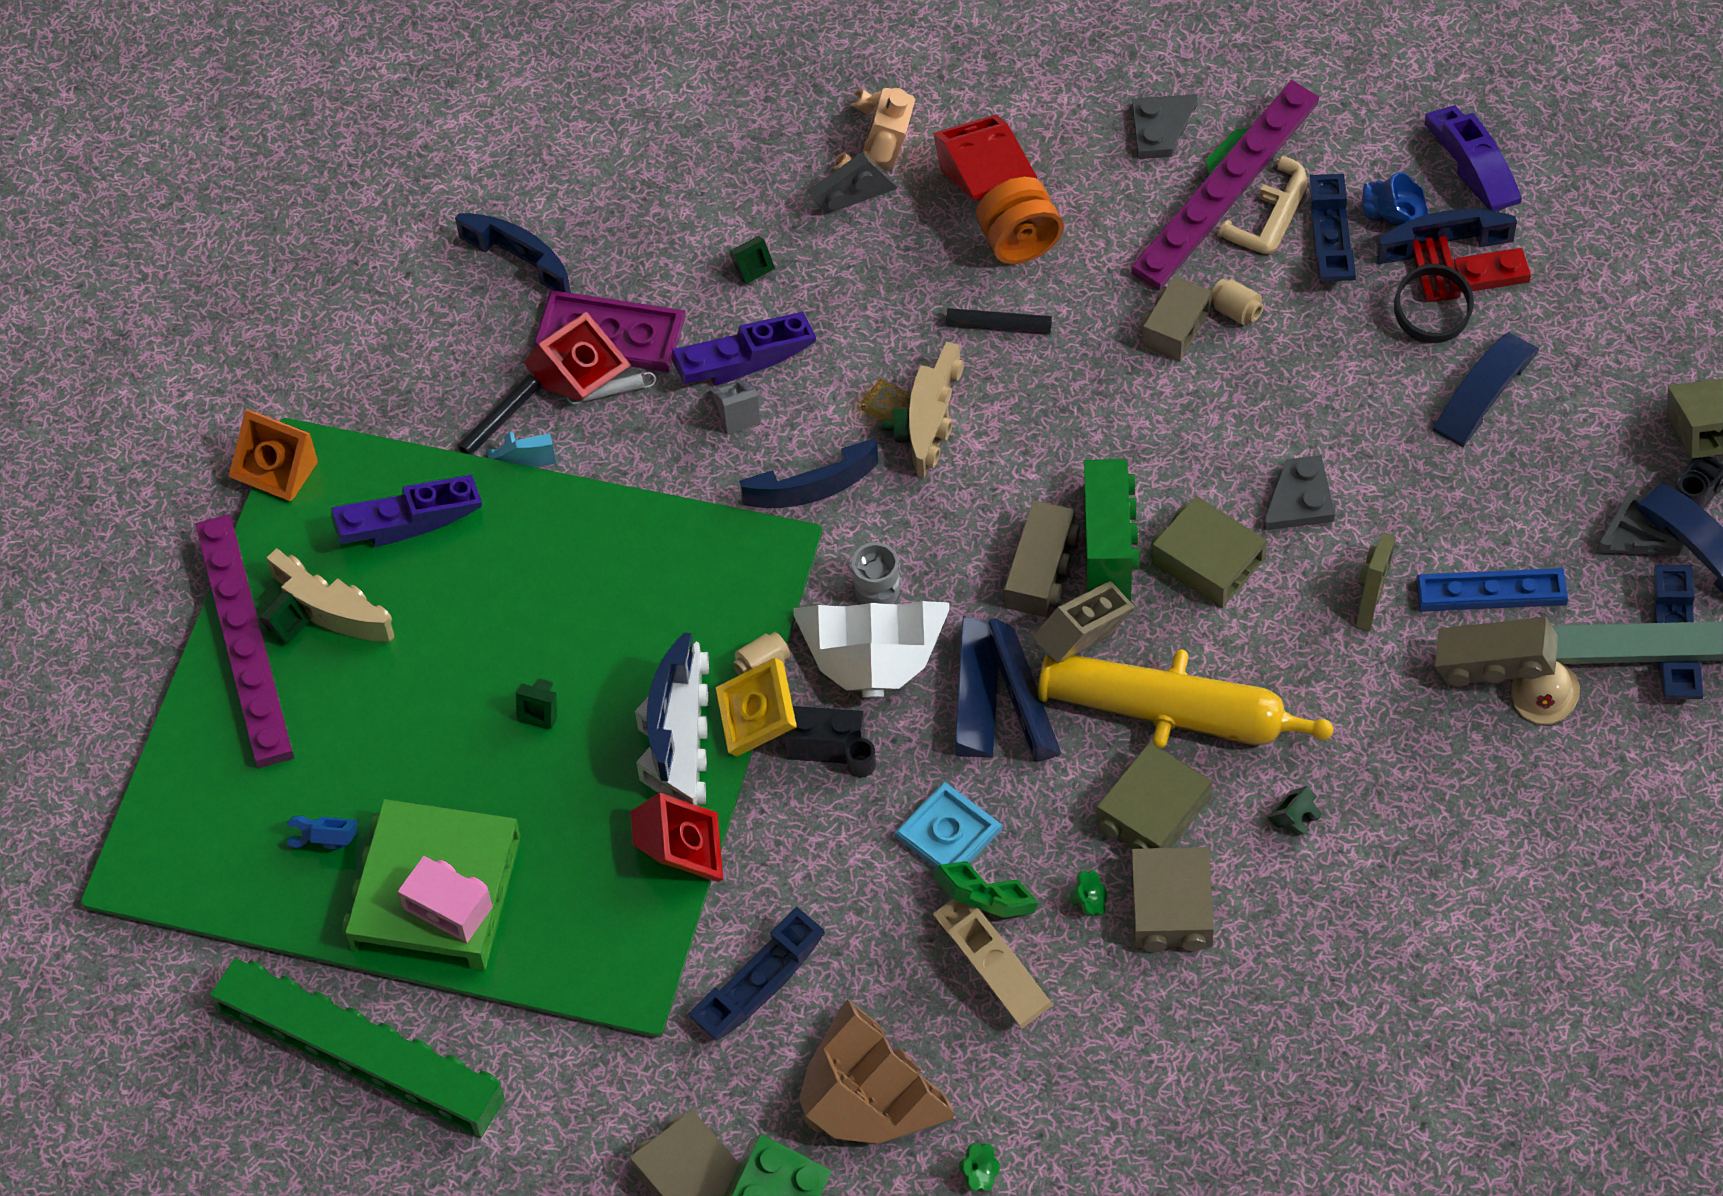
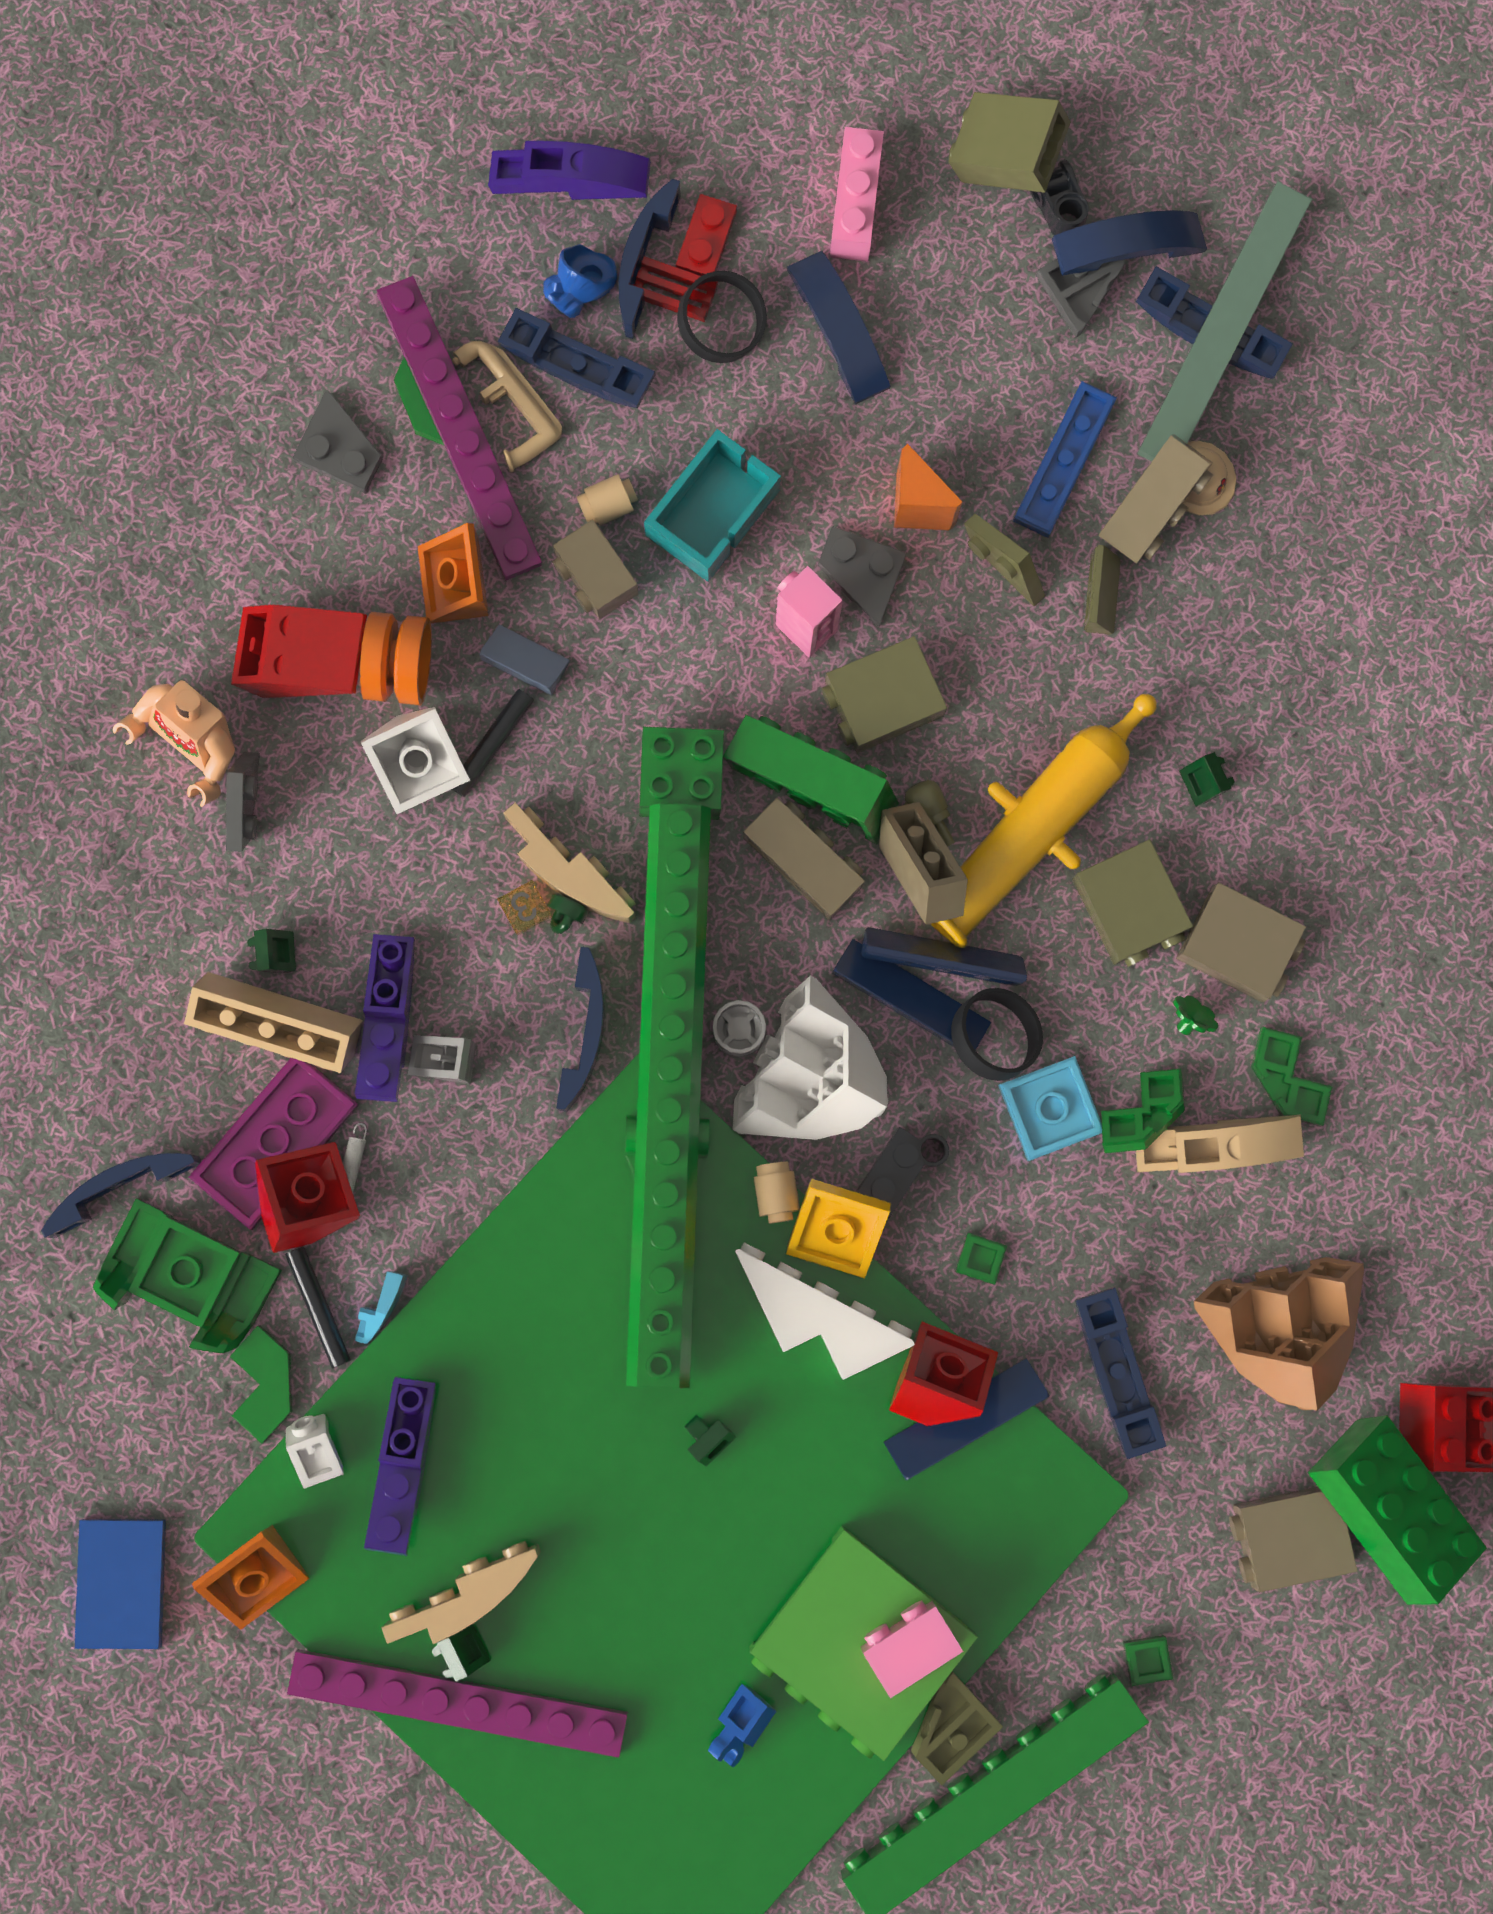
camera: 70 degrees left, 25 degrees up
(223, 391) = (120, 1584): none -> blue tile
(386, 453) = (313, 1450): none -> white bracket
(398, 989) = (953, 1729): none -> olive wing
(409, 419) = (270, 1367): none -> green tile
(476, 325) = (186, 1276): none -> green piece
(529, 1117) = (1148, 1660): none -> green tile
(654, 880) = (1007, 1397): none -> dark blue slope
(673, 669) = (851, 1349): dark blue slope -> none
(696, 278) = (273, 1022): none -> tan brick
(775, 556) = (667, 1123): none -> green piece
(794, 838) = (981, 1258): none -> green tile
(950, 269) = (414, 758): none -> white slope
(979, 1167) = (1419, 1269): green plant -> none
(1006, 728) = (1021, 1009): none -> black tyre
(1077, 310) = (524, 659): none -> sand blue slope
(1084, 980) = (1275, 1066): none -> green tile
(1113, 238) = (453, 576): none -> orange slope
(1139, 628) = (934, 804): none -> olive piece
(1232, 451) = (807, 610): none -> bright pink brick
(1277, 363) = (712, 505): none -> teal piece
(1379, 488) = (922, 496): none -> orange slope
(1399, 662) = (1102, 591): none -> olive slope
(1597, 343) = (856, 194): none -> bright pink brick

